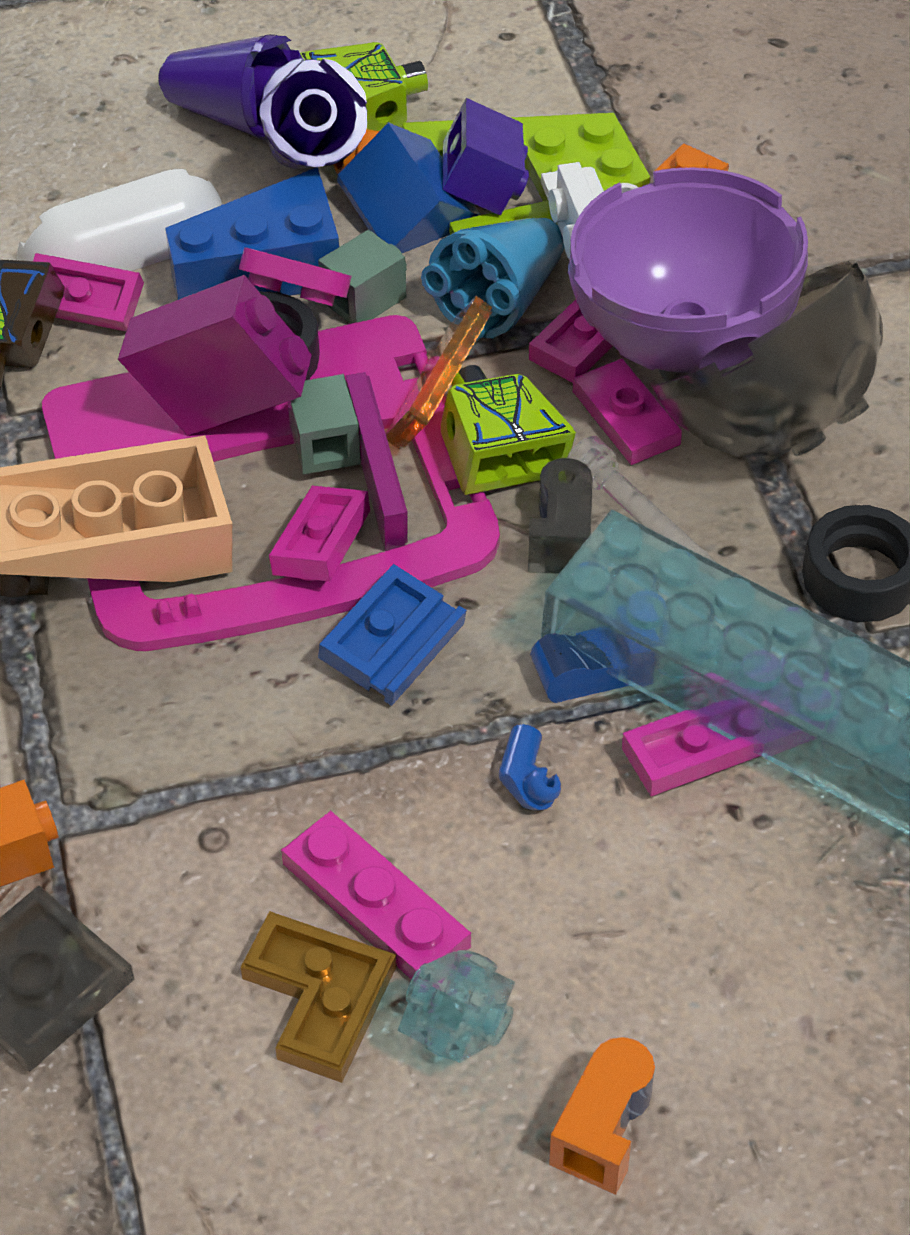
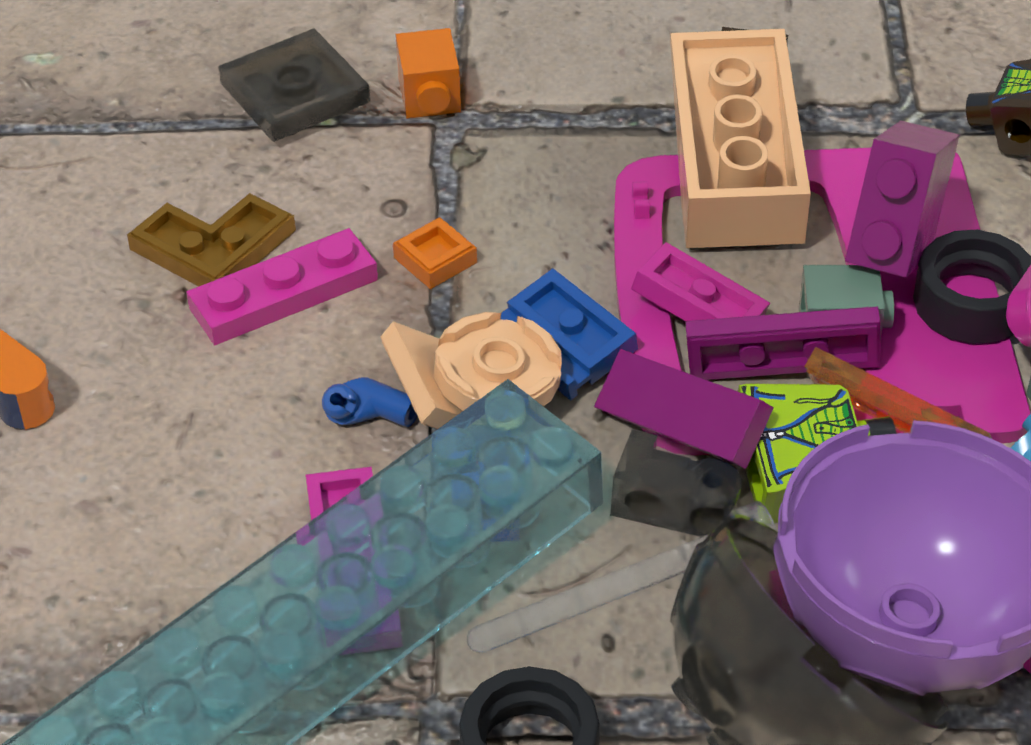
camera: 105 degrees right, 5 degrees down
(288, 775) = (435, 253): none -> orange tile
(458, 1005) = (132, 291): clear light blue brick -> none
(474, 653) = (486, 351): none -> light nougat tile
(490, 506) = (684, 408): none -> magenta tile
(491, 719) = (413, 360): none -> light nougat tile

